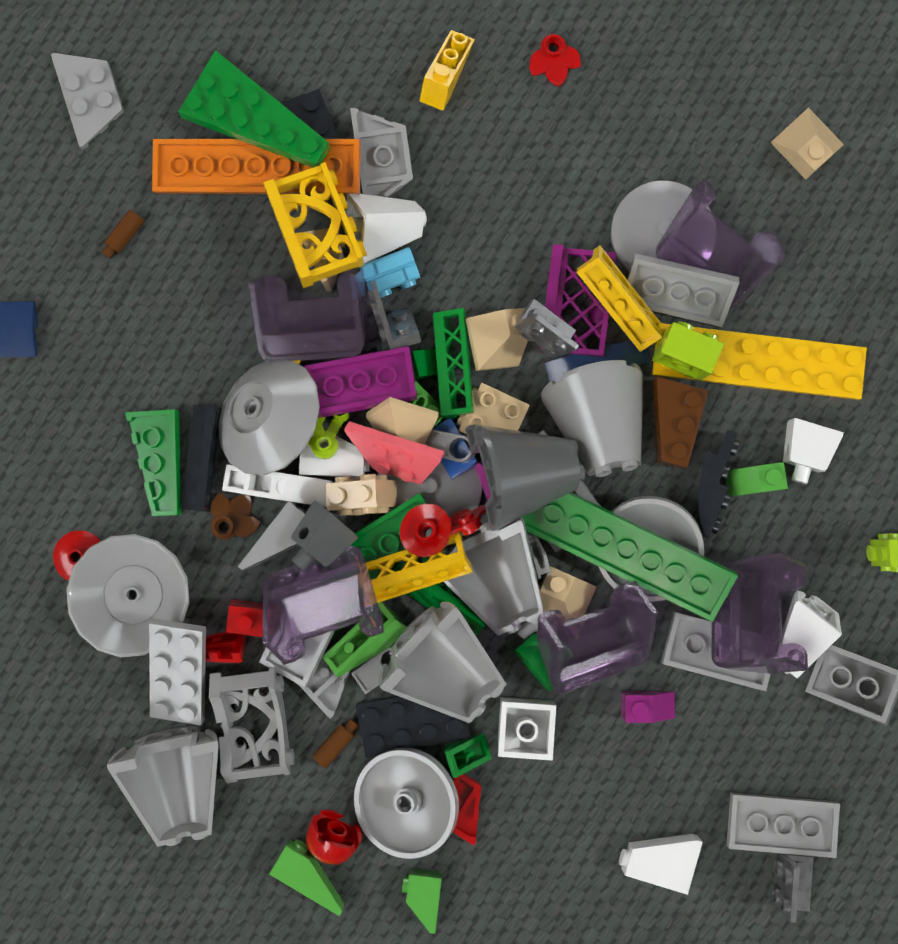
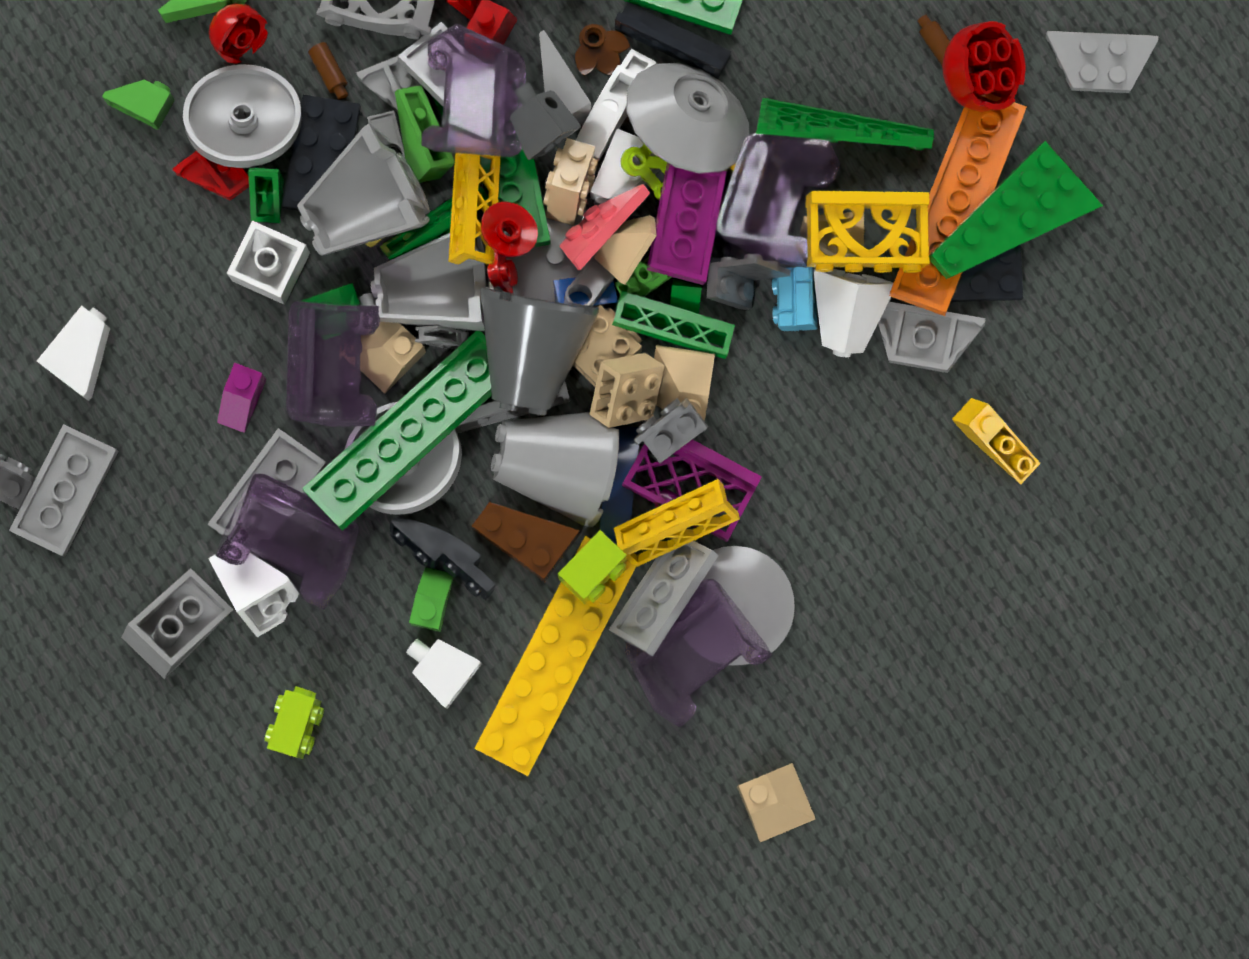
camera: 110 degrees right, 5 degrees down
(130, 184) = (983, 62): none -> red cylinder
(234, 311) = (817, 123): none -> green wing
(525, 379) = (626, 390): none -> tan brick
(554, 64) = (962, 560): red plate -> none

